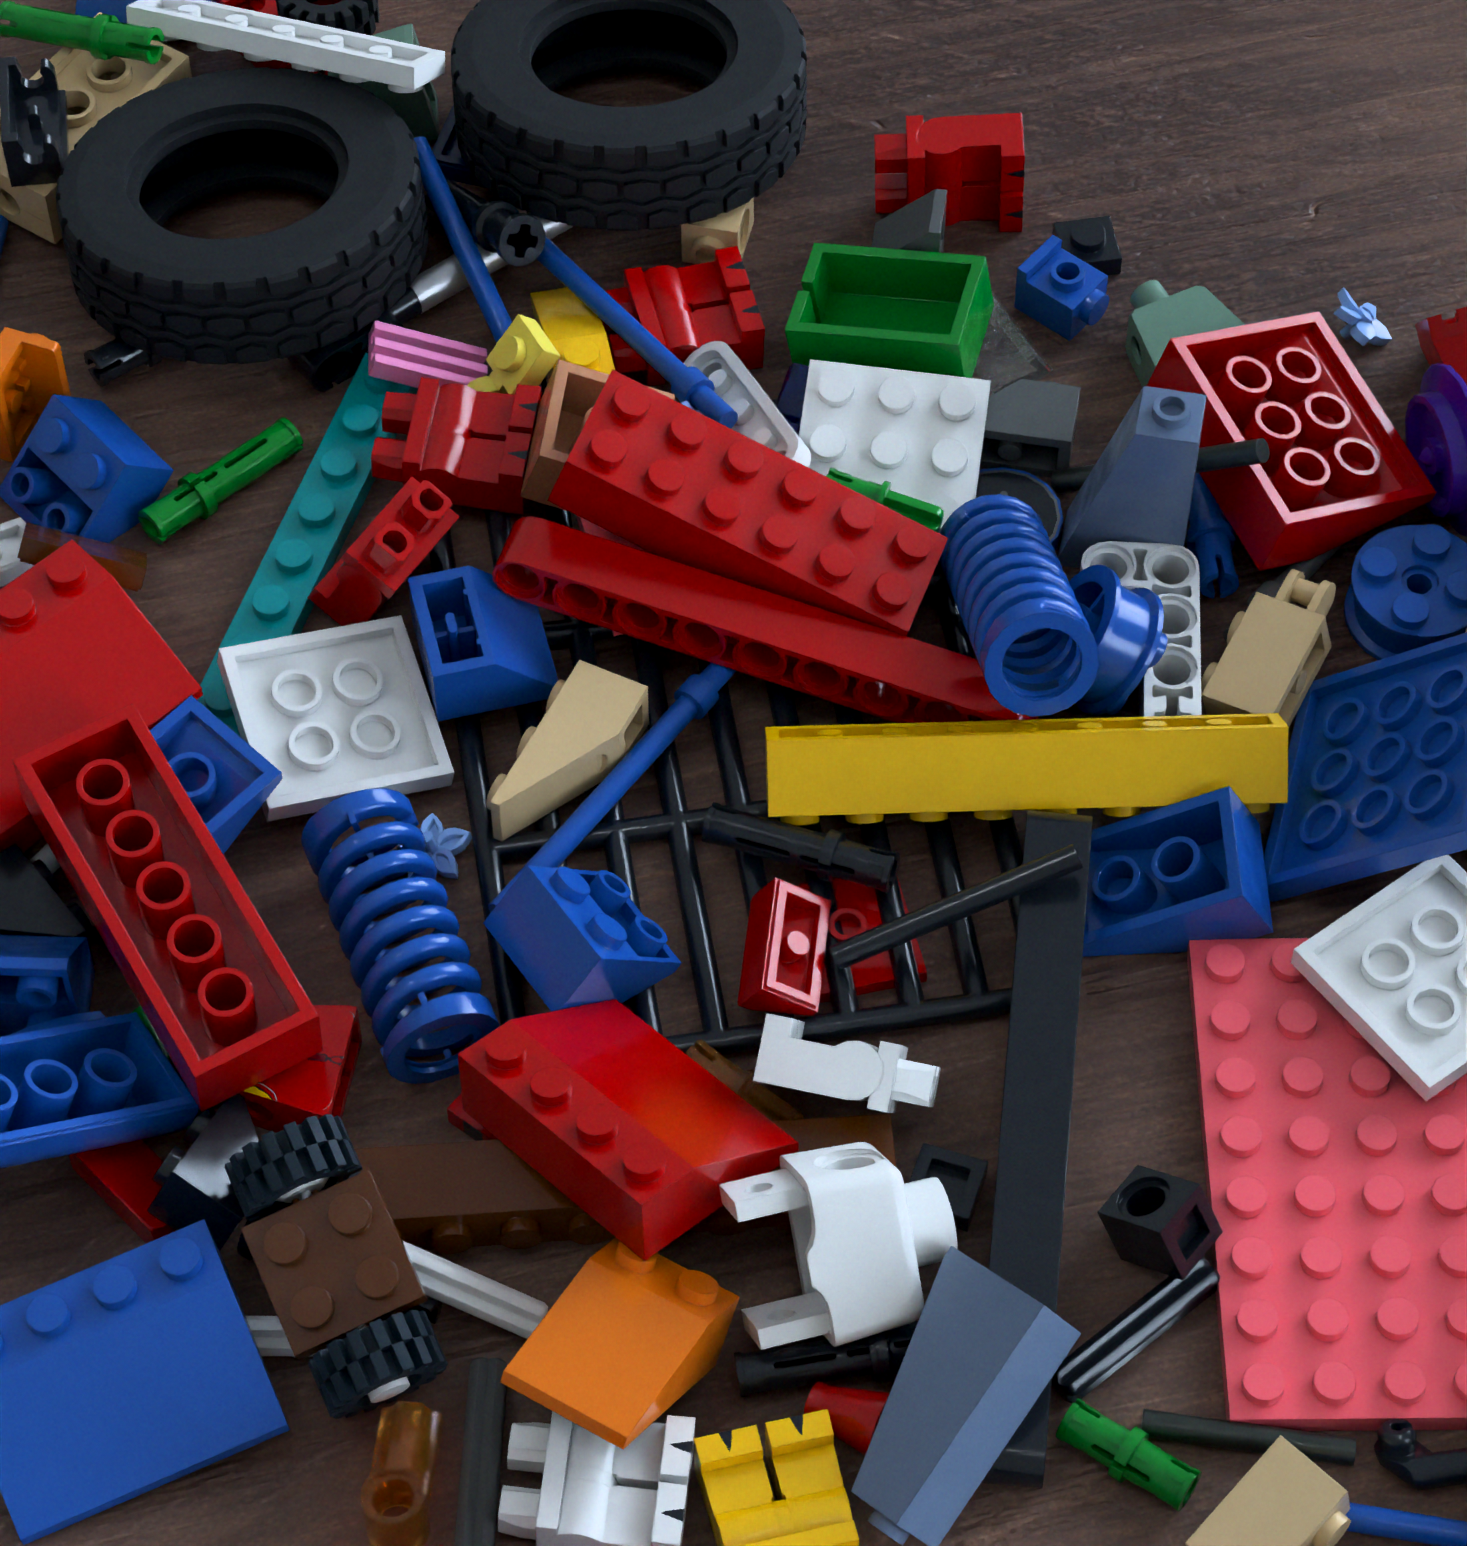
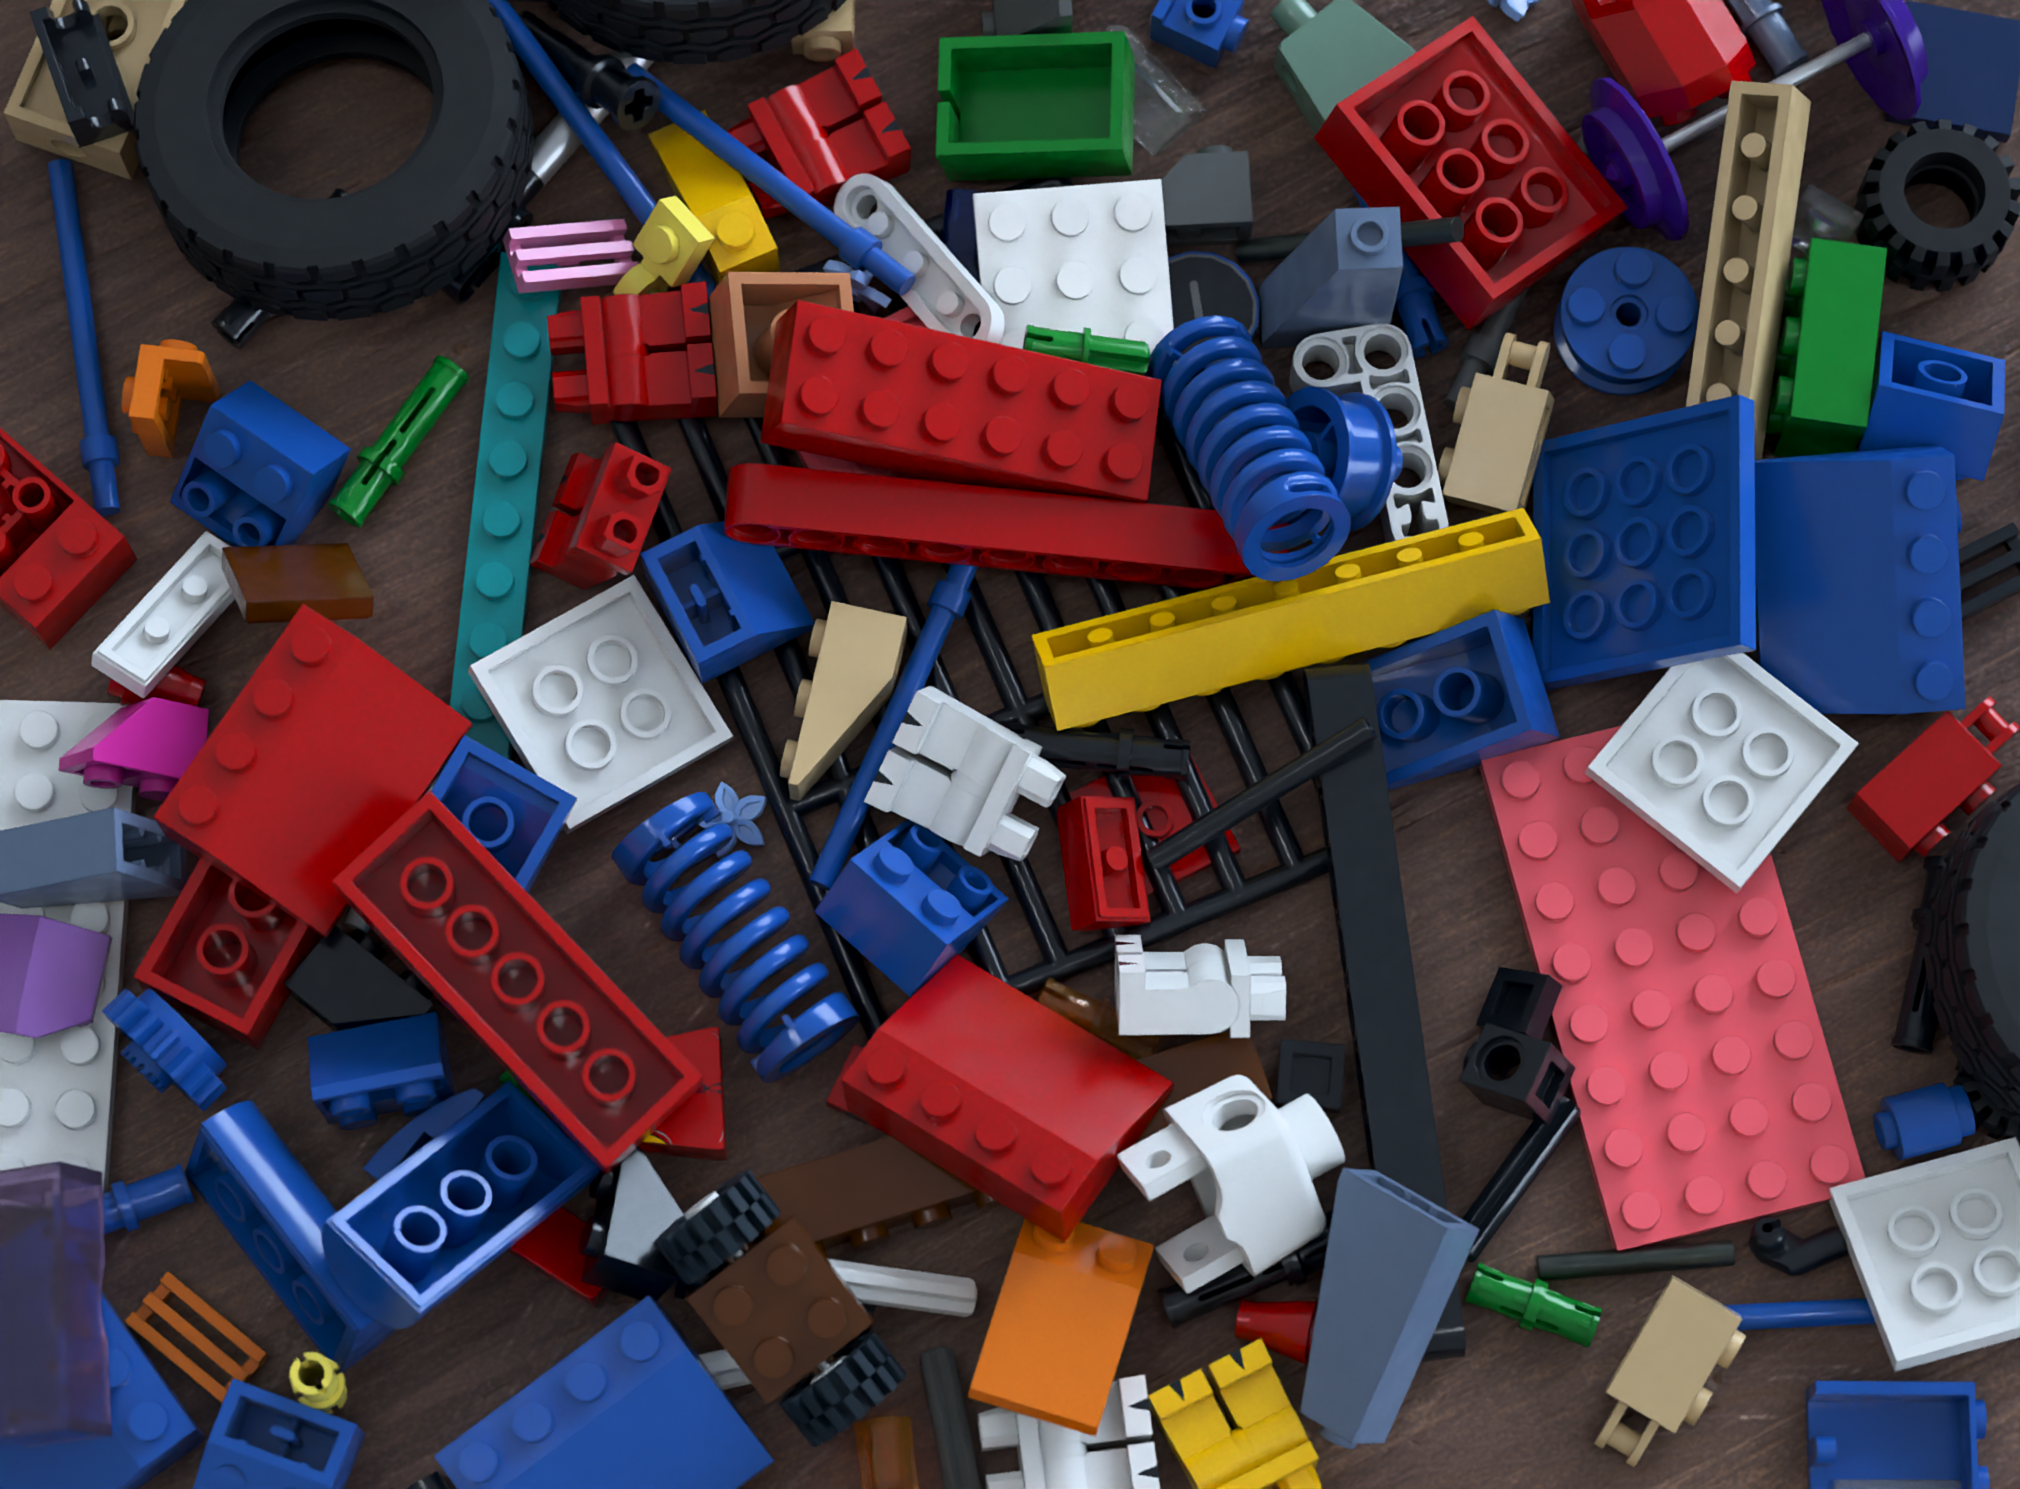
camera: 15 degrees left, 20 degrees up
(682, 849) = (963, 776): none -> white hips
(1185, 1154) = (1520, 1001): none -> black plate

